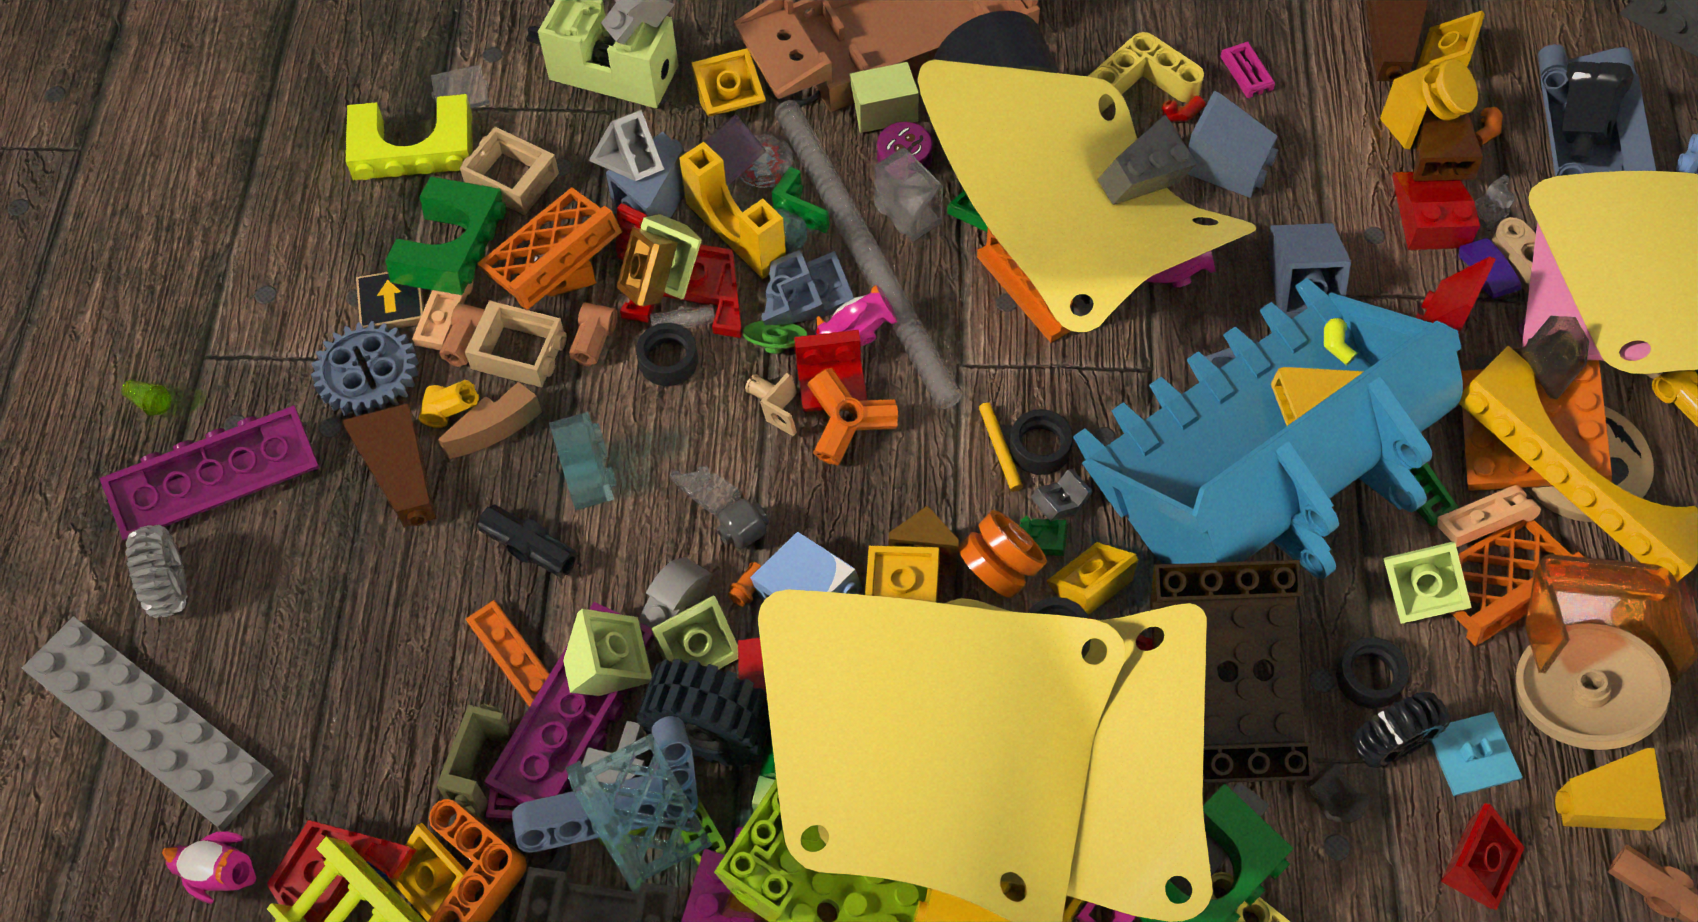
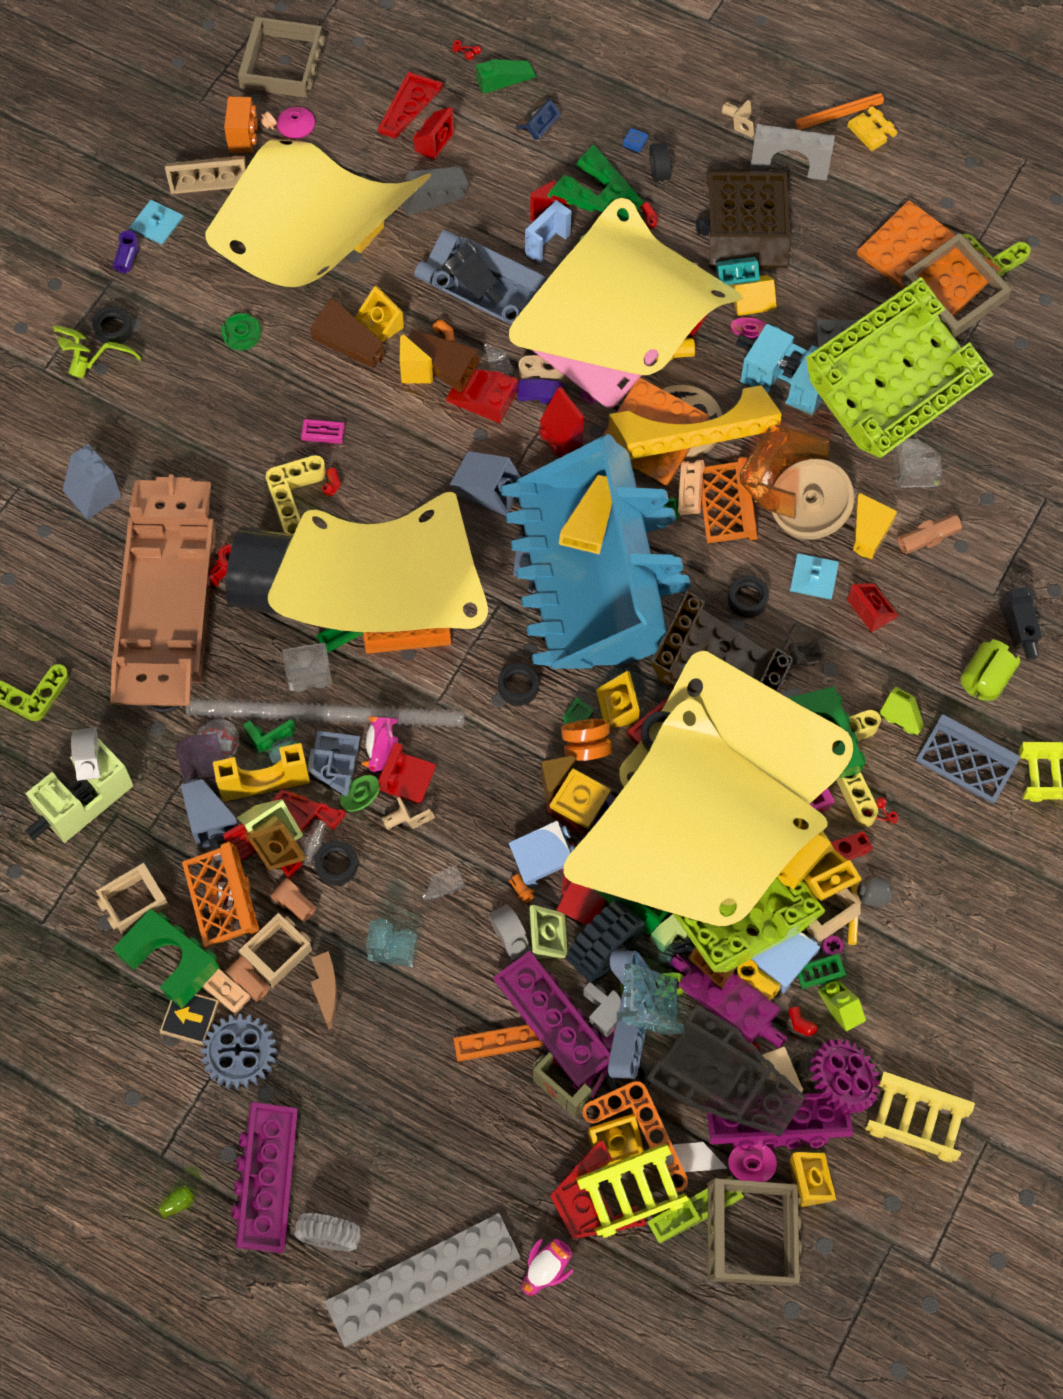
camera: 65 degrees left, 5 degrees up
(394, 456) = (322, 1058): reddish brown slope -> none
(442, 151) = (63, 982): neon yellow arch -> none
(443, 402) = (296, 1013): yellow piece -> none
(462, 81) = (34, 904): clear piece -> none
(527, 540) = (423, 1001): black piece -> none
(605, 654) = (537, 982): yellowish green slope -> none
(628, 148) = (190, 809): light grey slope -> none
(727, 82) = (151, 731): yellow slope -> none
(742, 523) = (483, 872): dark grey head -> none
(838, 432) = (430, 780): orange piece -> none
(884, 96) = (220, 642): yellowish green slope -> none
(908, 135) = (264, 653): magenta head -> none
(1000, 447) = (505, 707): yellow bar -> none
(1063, 497) = (561, 691): flat silver bracket -> none
(1149, 164) = (368, 522): dark grey wedge -> none
(1231, 147) = (381, 474): sand blue slope -> none
(1335, 341) = (552, 495): neon yellow arm -> none
(1401, 729) = (791, 601): black gear -> none
(1427, 582) = (716, 540): yellowish green slope -> none
(1449, 89) = (425, 337): yellow head -> none
(1556, 353) = (627, 396): clear smoke piece -> none

